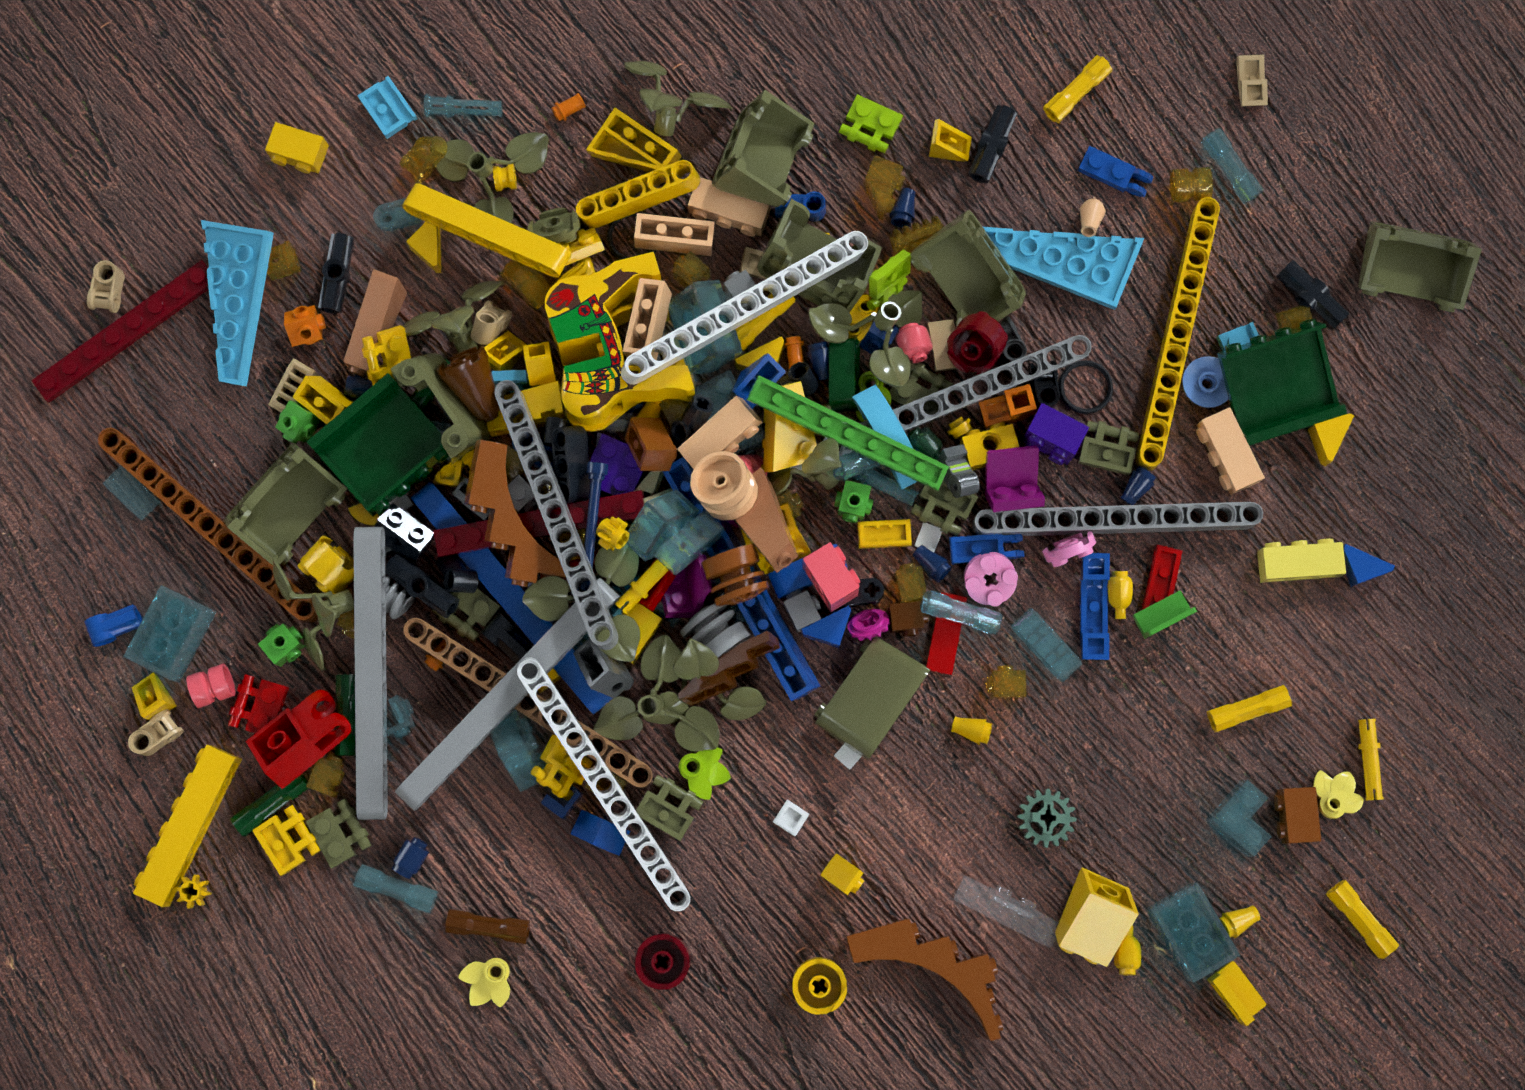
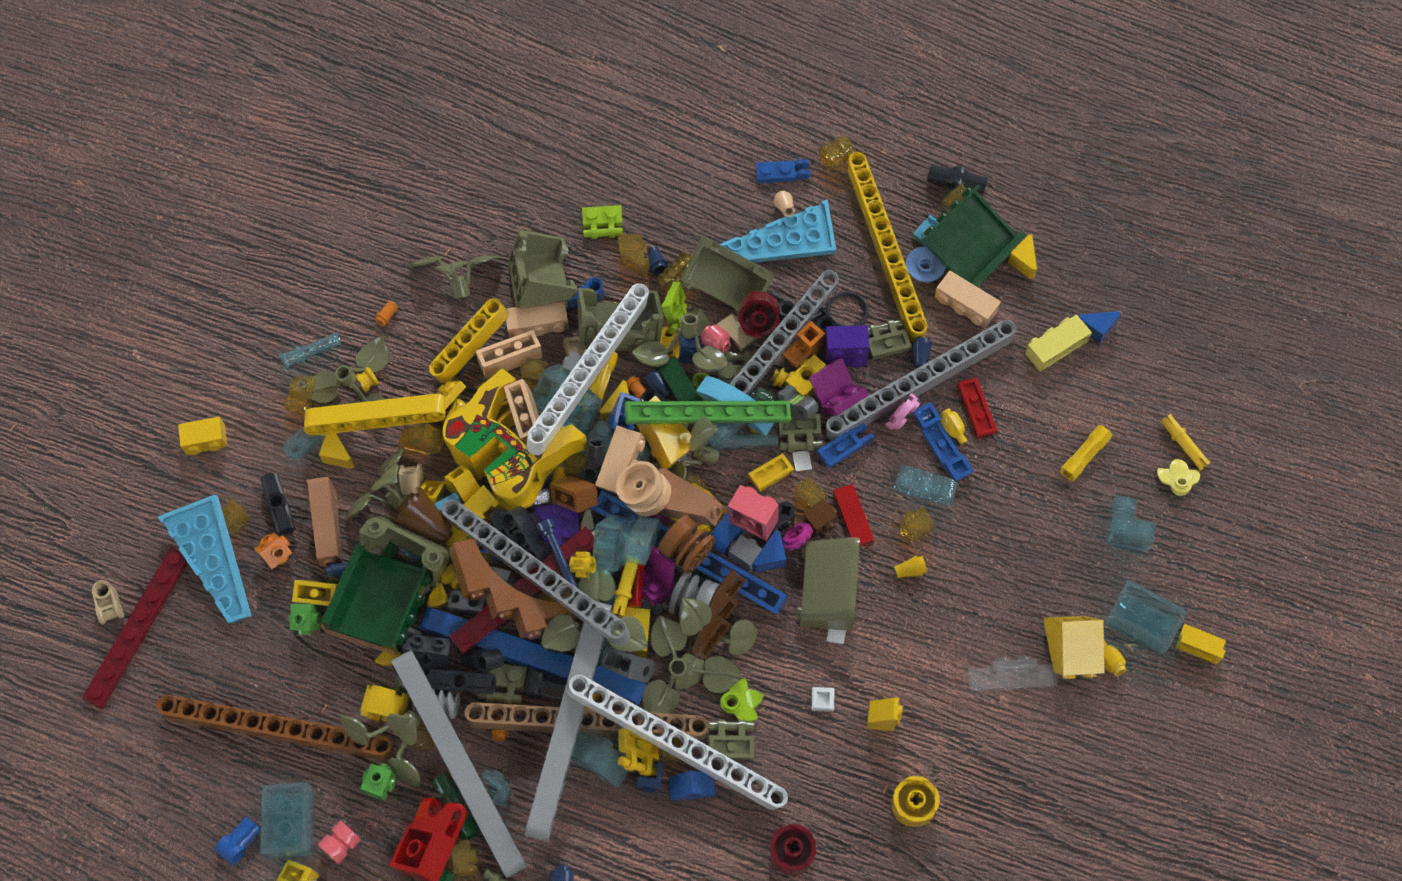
camera: 30 degrees left, 15 degrees down
(131, 492) = (202, 737): clear light blue slope -> none
(267, 704) = (389, 833): red plate -> none
(284, 504) = (325, 678): olive windscreen -> none
(289, 375) = (280, 590): tan slope -> none
(387, 107) = (255, 377): medium azure plate -> none
(393, 349) = (348, 529): yellow plate -> none
(556, 225) = (424, 387): olive plate -> none
(631, 144) = (445, 312): yellow wedge -> none
(854, 492) = (737, 461): bright green brick -> none
(932, 563) = (819, 474): dark blue cone -> none
(949, 142) = (661, 206): yellow slope -> none
(961, 612) = (841, 494): clear light blue axle -> none
(968, 975) = (985, 734): dark orange arch -> none
(987, 564) = (870, 454): bright pink plate -> none
(992, 144) = (691, 193): black piece -> none
(1046, 805) = (1001, 589): sand green gear -> none
(1065, 101) = (723, 143): yellow axle -> none
(1163, 614) = (991, 422): bright green panel -> none
(1222, 151) = (843, 124): clear light blue axle -> none
(1239, 920) = (1172, 591): yellow cone -> none
(1252, 80) = (836, 76): tan slope -> none
(1297, 815) = (1163, 503): dark orange brick -> none
(1375, 935) = (1265, 553): yellow axle -> none
(1418, 265) = (1012, 127): olive windscreen -> none

